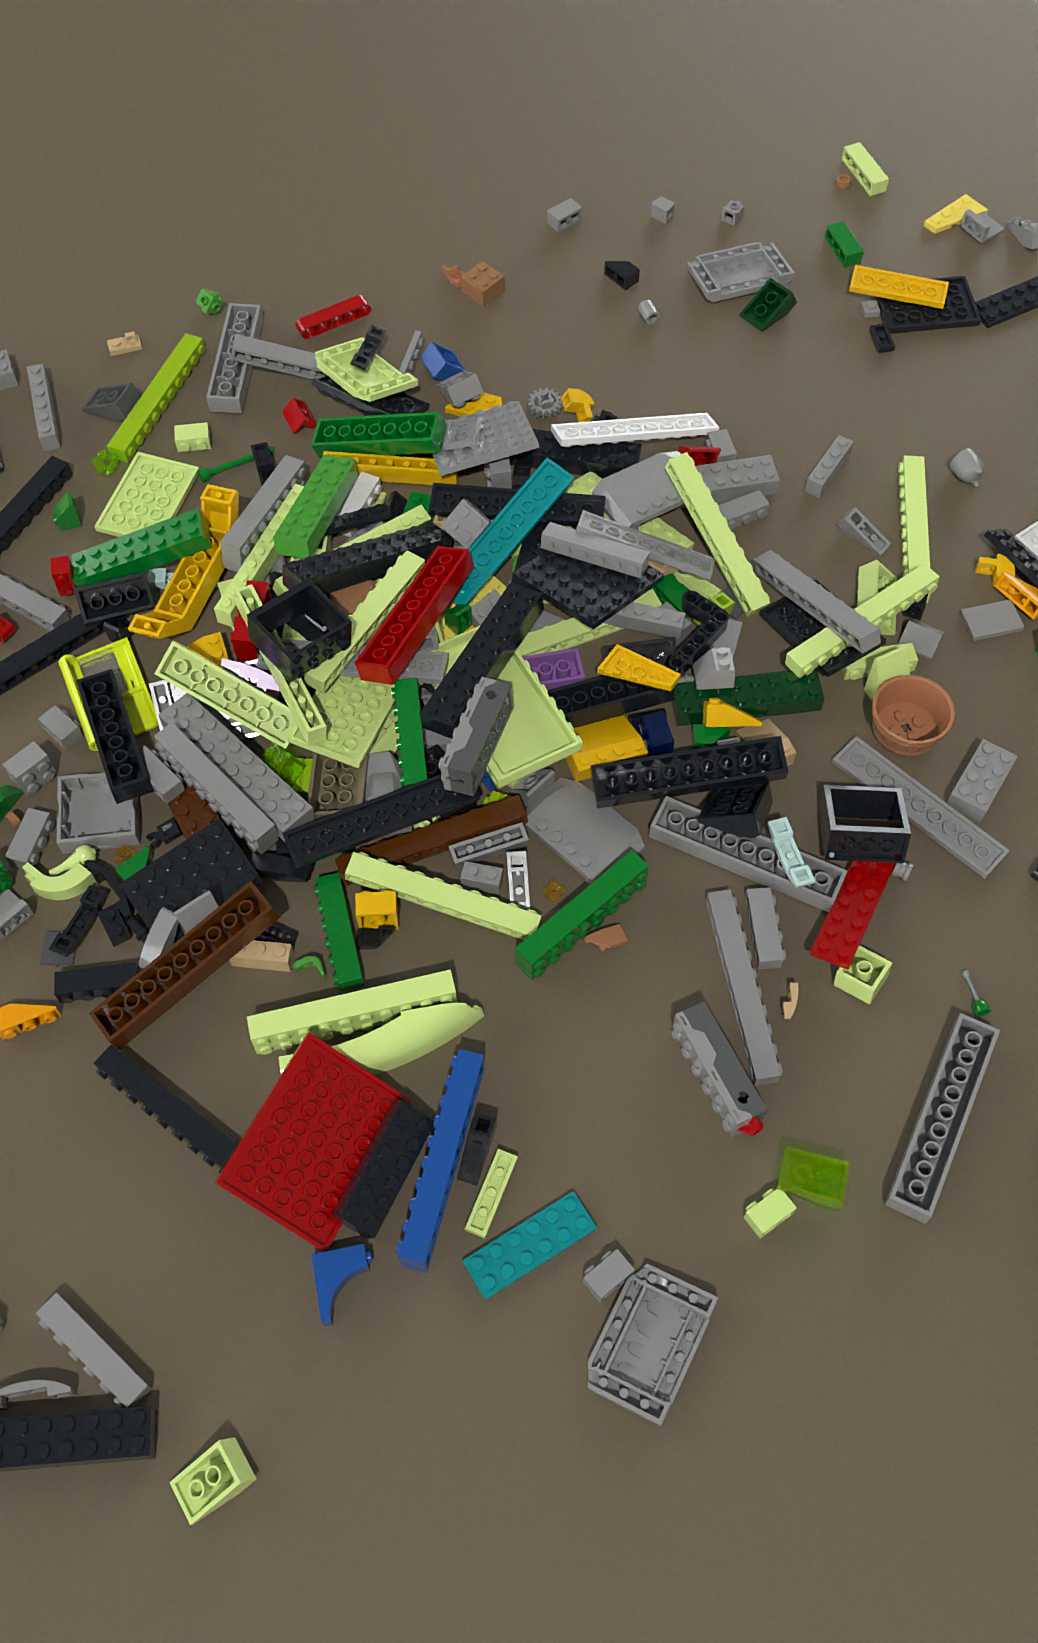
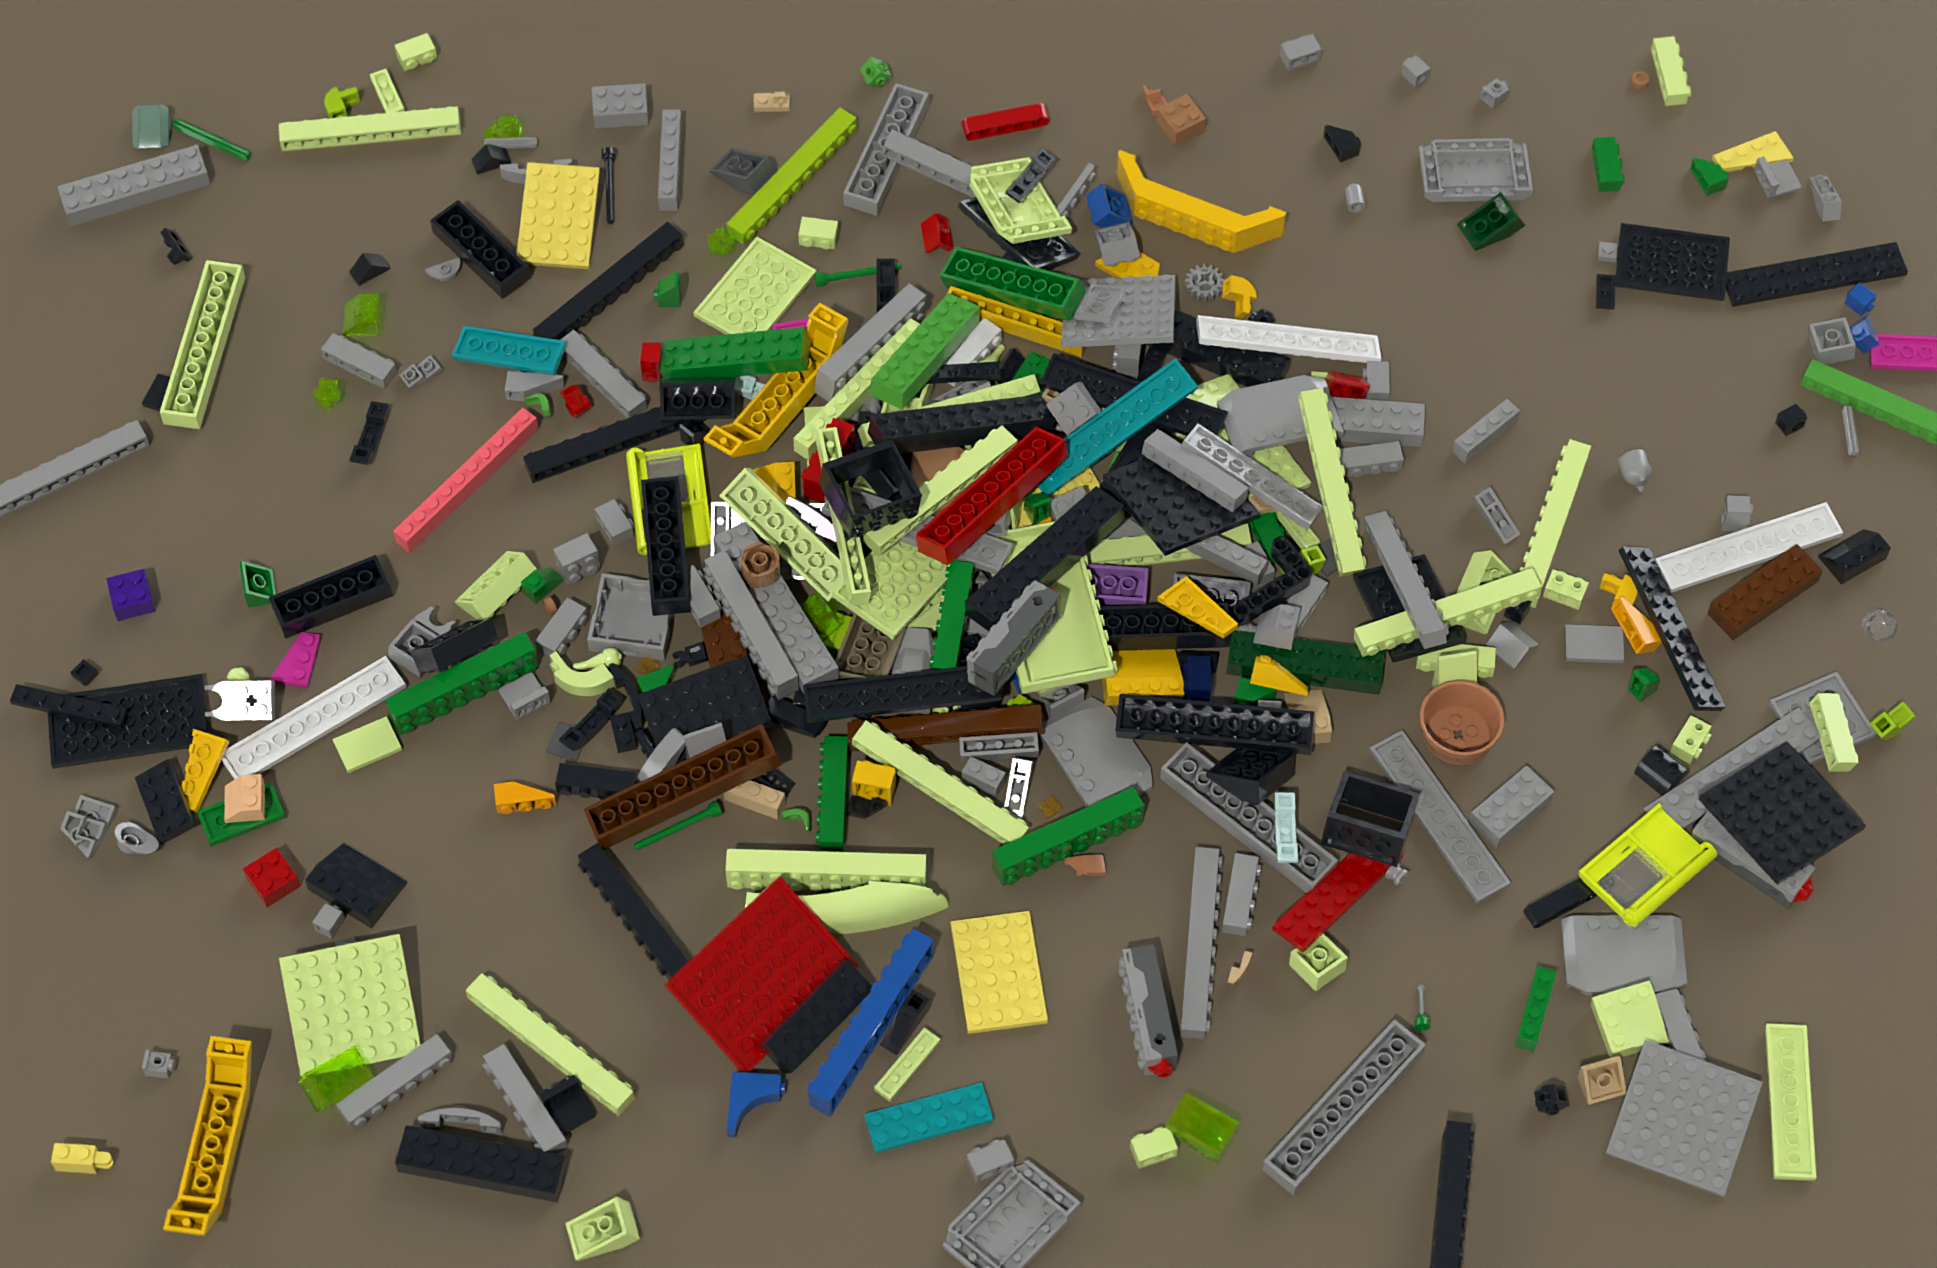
camera: 15 degrees right, 0 degrees up
(109, 1277) = (550, 1044): none -> yellowish green brick
(141, 1343) = (567, 1105): none -> black bracket
(210, 728) = (760, 565): none -> medium nougat brick
(221, 980) = (712, 810): none -> green piece
(518, 351) = (1194, 216): none -> yellow slope
(554, 1069) = (998, 972): none -> light yellow plate
(899, 286) = (1645, 235): yellow plate -> none
(928, 235) = (1709, 175): none -> green slope
(952, 579) = (1566, 589): none -> yellowish green brick

